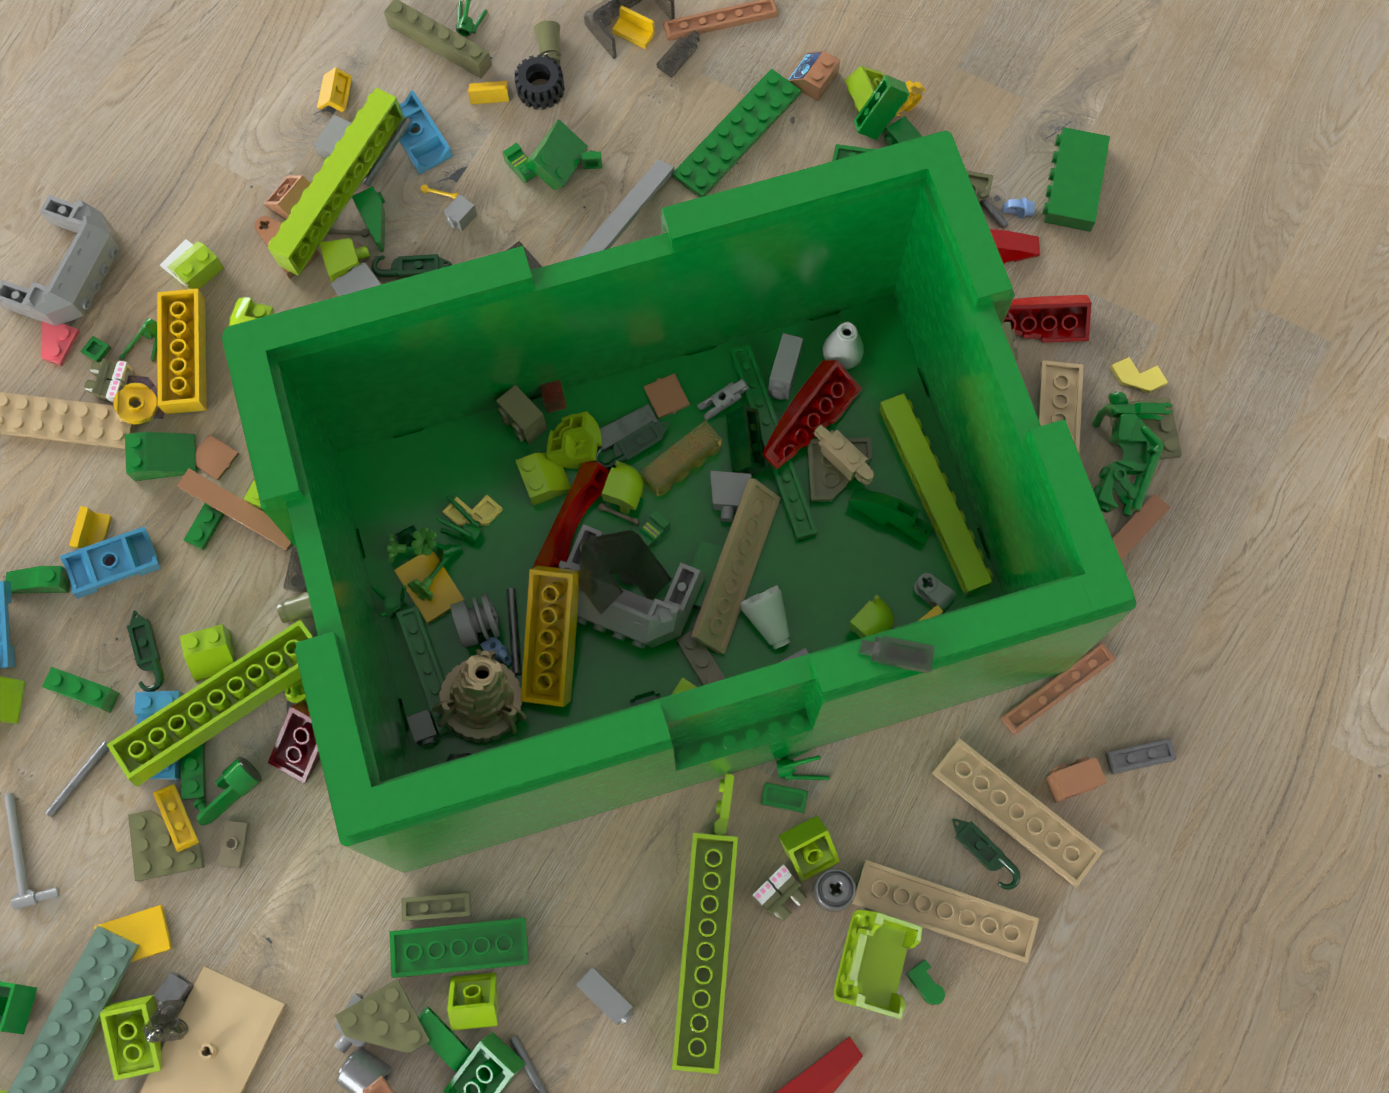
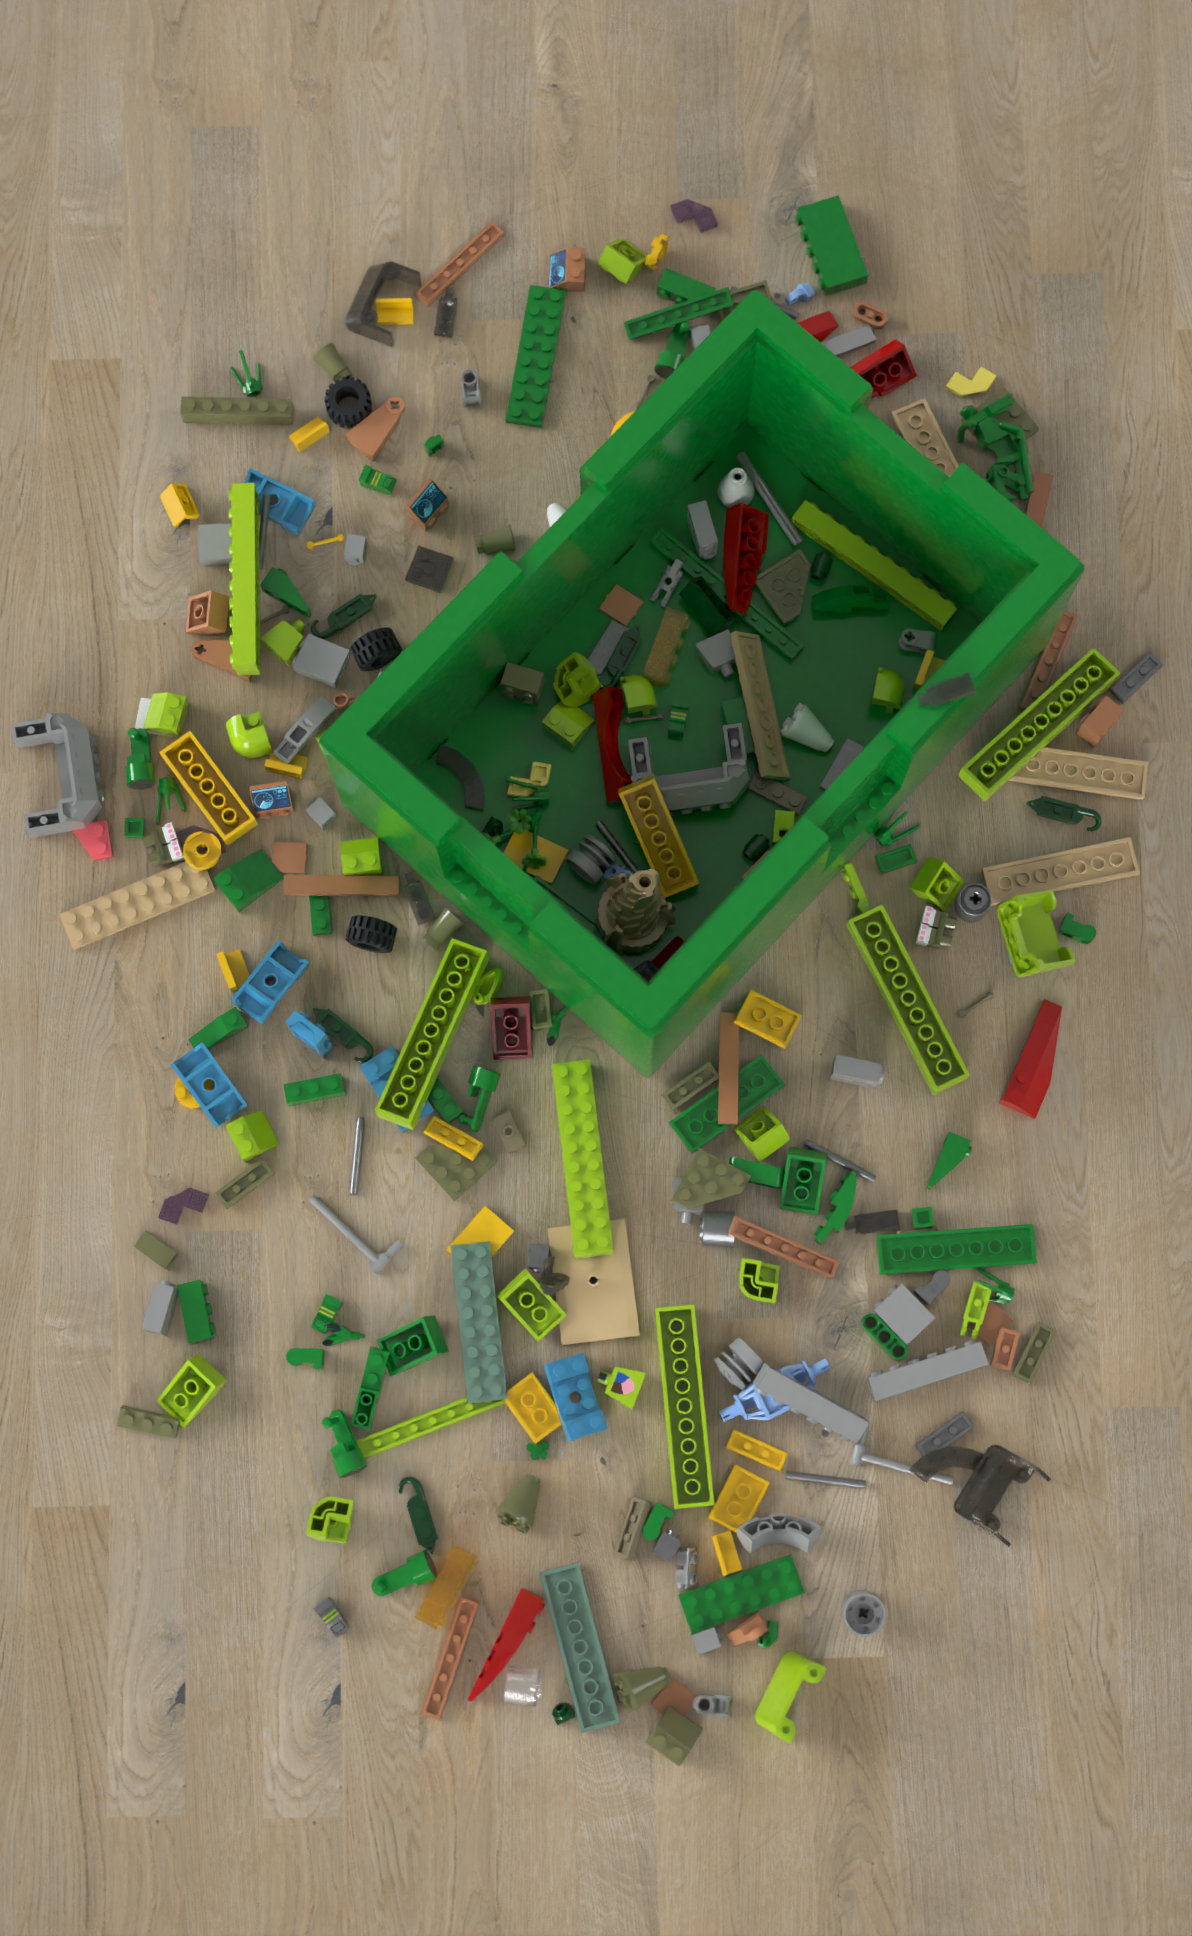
camera: 30 degrees left, 5 degrees up
(103, 636) = (309, 1033): none -> dark azure piece
(136, 297) = (139, 768): none -> green piece
(207, 651) = (394, 1005): lime slope -> none
(221, 392) = (271, 799): none -> slope
(229, 571) = (371, 934): none -> black tyre
(276, 923) = (582, 1159): none -> lime brick
(419, 472) = (466, 773): none -> clear smoke tile
(481, 913) = (728, 1069): none -> nougat tile
(540, 118) = (375, 429): none -> nougat piece
(548, 207) = (427, 505): none -> slope
(553, 396) = (535, 655): clear red brick -> none
(554, 884) = (767, 1019): none -> yellow tile
(557, 156) = (405, 458): green slope -> none
(620, 554) = (673, 752): clear smoke windscreen -> none
(628, 208) = (491, 481): light grey tile -> none
(656, 131) = (470, 391): none -> light grey piece
(757, 999) = (962, 1013): none -> dark tan hinge
(844, 455) = (790, 574): tan hinge -> none
(871, 375) = (769, 499): none -> light grey axle
(881, 107) = (645, 272): green brick -> none
(883, 465) = (821, 566): none -> dark green brick
(961, 79) = (689, 209): none -> clear purple tile
(1010, 746) = (1039, 724): none -> lime brick
(1038, 274) = (850, 341): none -> light grey tile
(1077, 261) = (871, 313): none -> nougat plate

